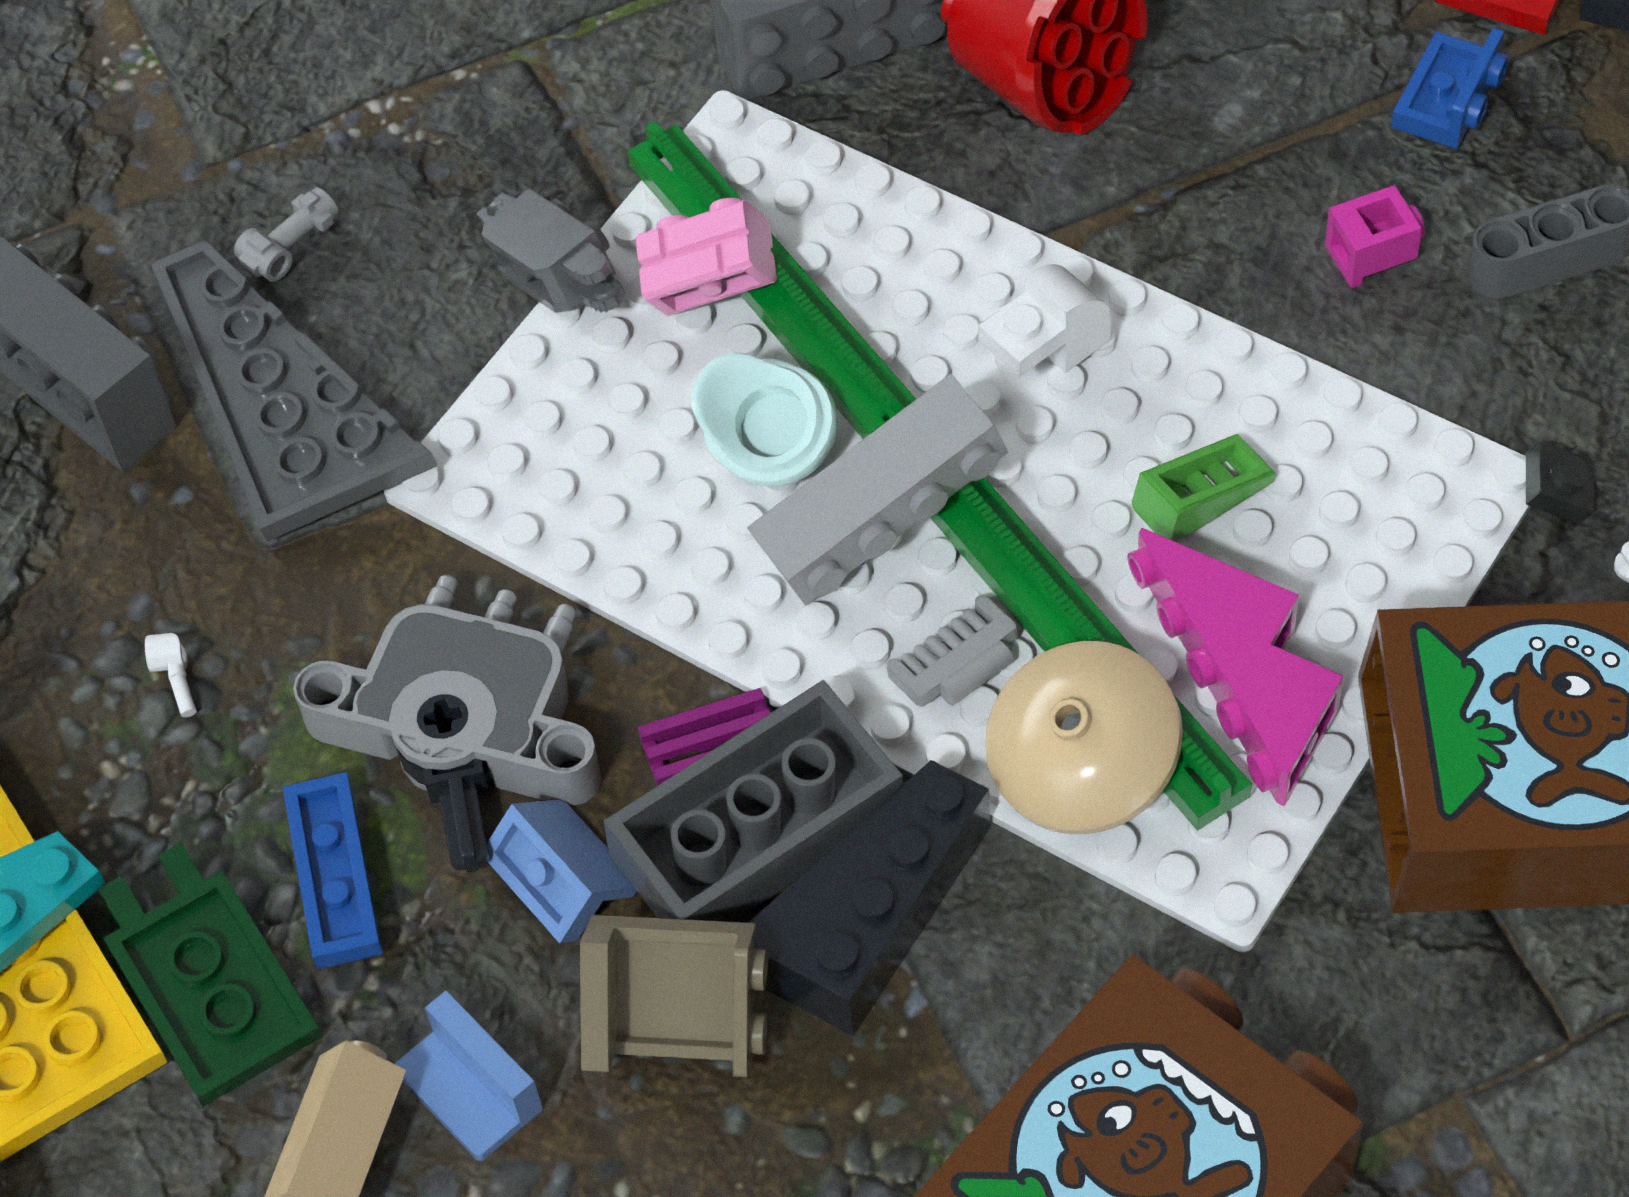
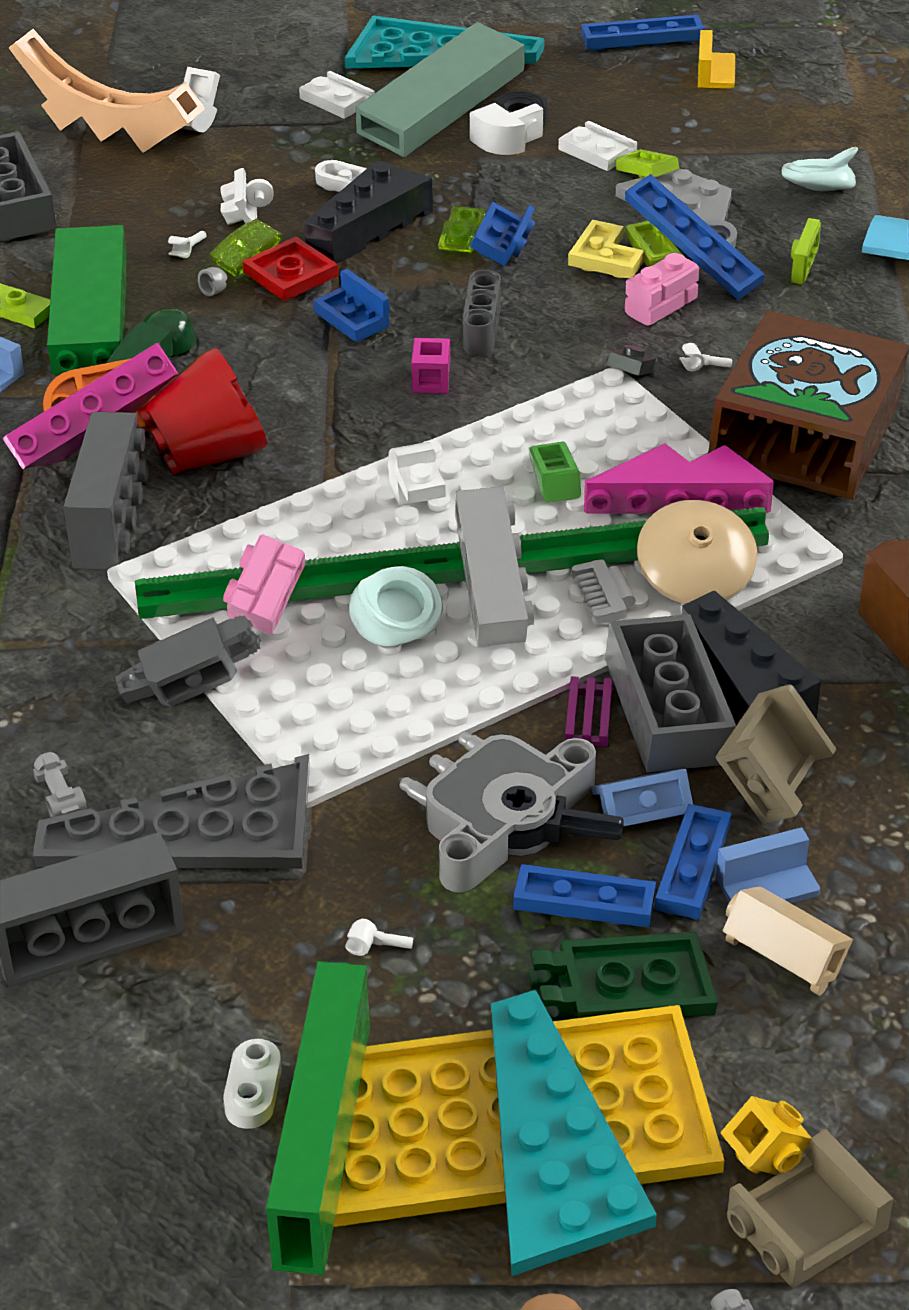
camera: 70 degrees left, 15 degrees down
(472, 969) = (693, 862): none -> blue plate

